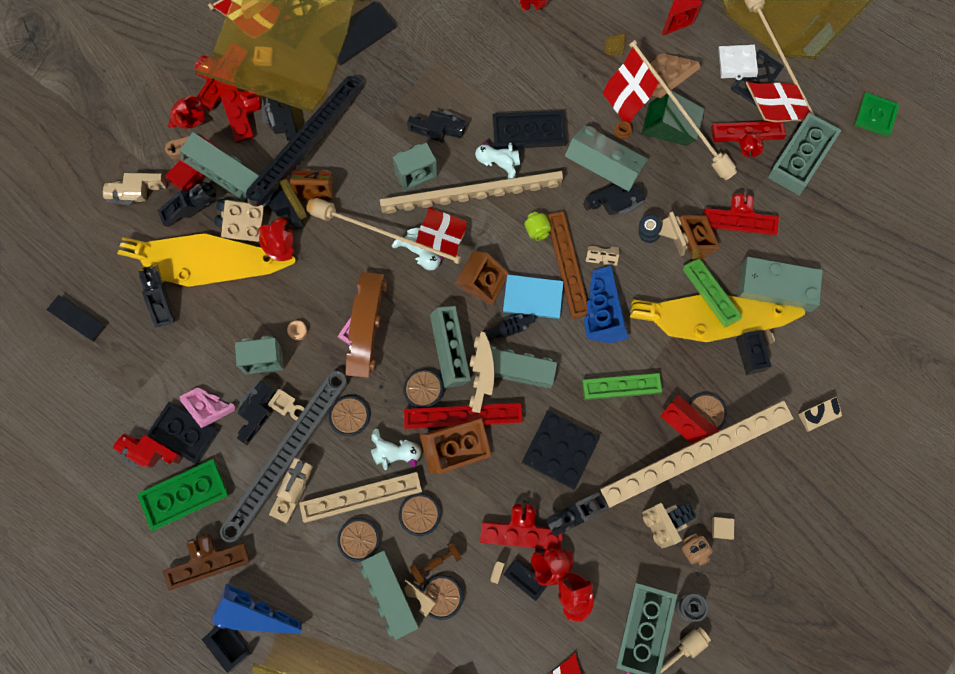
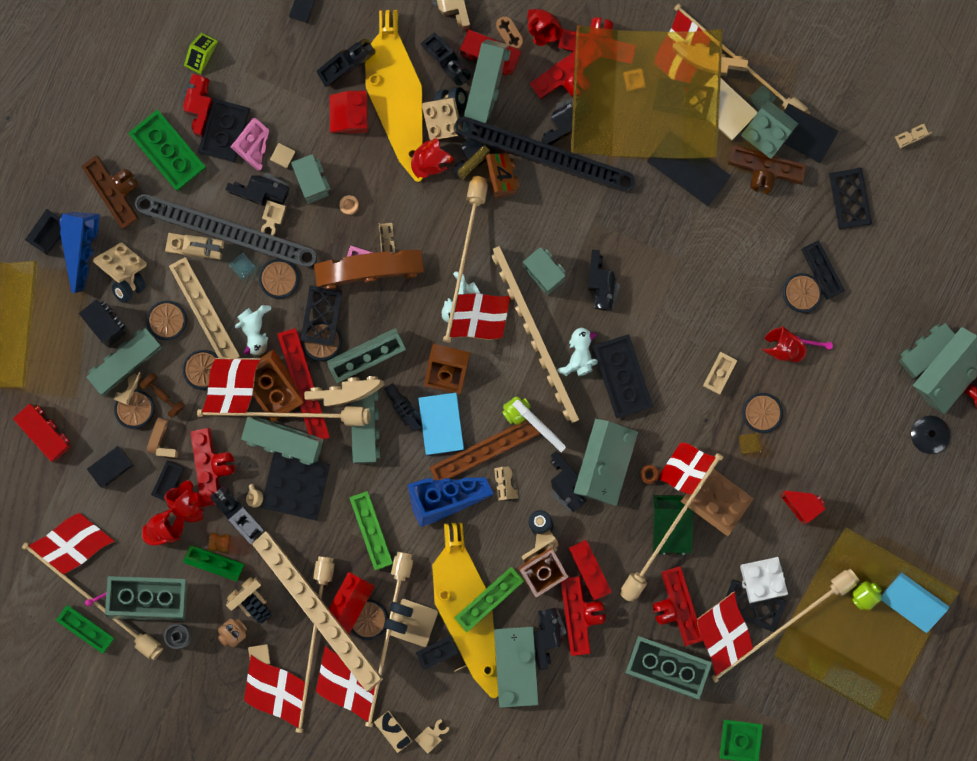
camera: 85 degrees right, 10 degrees up
(95, 437) = (199, 53): none -> lime slope
(206, 306) = (349, 112): none -> red slope
(228, 381) = (282, 156): none -> tan tile
(290, 569) = (122, 266): none -> tan plate
(325, 448) = (242, 266): none -> clear light blue plate
(337, 304) = (386, 235): none -> tan piece
(341, 607) = (100, 320): none -> black brick
(396, 367) = (327, 342): none -> black window
(448, 484) = (232, 389): none -> flag
(476, 578) = (157, 435): none -> medium nougat beam
(497, 638) = (110, 467): none -> black panel
(513, 448) = (282, 439): none -> sand green brick
(546, 51) = (719, 373): none -> tan plate
(560, 202) = (544, 430): none -> white tile
(563, 493) = (254, 497): none -> tan piece
(589, 29) = (762, 412): none -> medium nougat wheel
(601, 540) = (219, 542): none -> clear orange wheel
(621, 551) = (213, 563): none -> green plate
(701, 197) = (589, 570): none -> red brick
(719, 369) = (411, 622): none -> tan plate
(751, 246) = (549, 635): none -> black plate
(761, 455) = (335, 679): none -> flag
(761, 518) = (277, 689): none -> flag
(831, 381) = (430, 738): none -> tan plate

